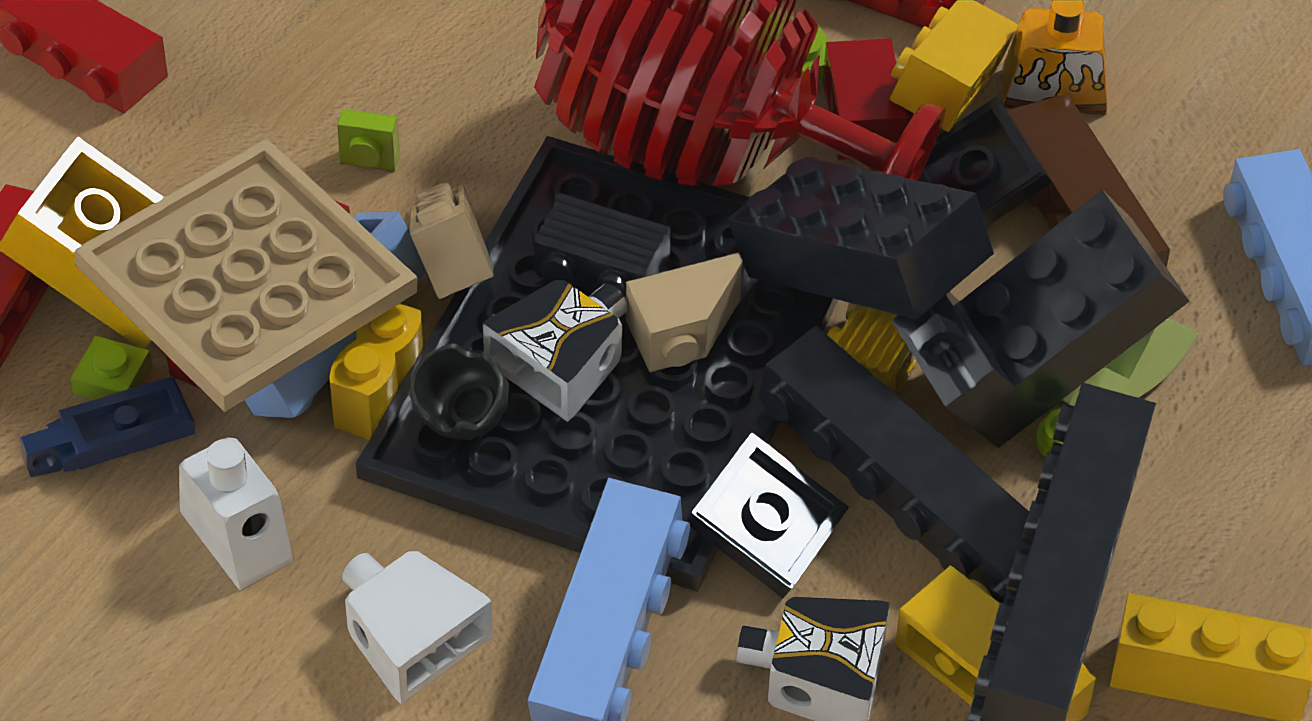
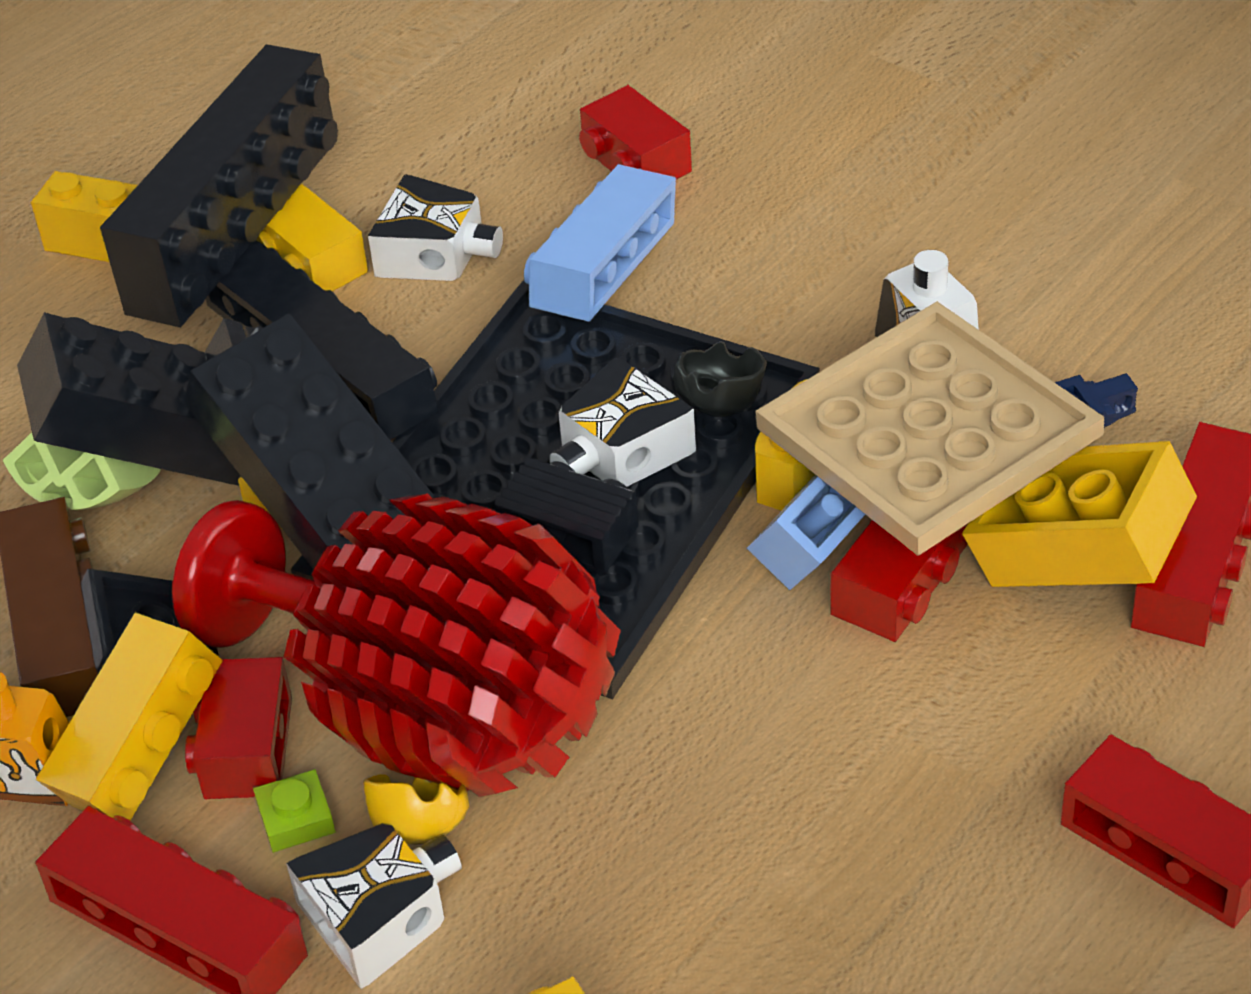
camera: 170 degrees left, 5 degrees down
(368, 139) = (813, 690): lime plate -> none
(413, 619) = (767, 260): white torso -> none
(449, 239) = (726, 549): tan slope -> none
(682, 310) = (488, 451): tan slope -> none
(767, 515) = (458, 323): tile -> none

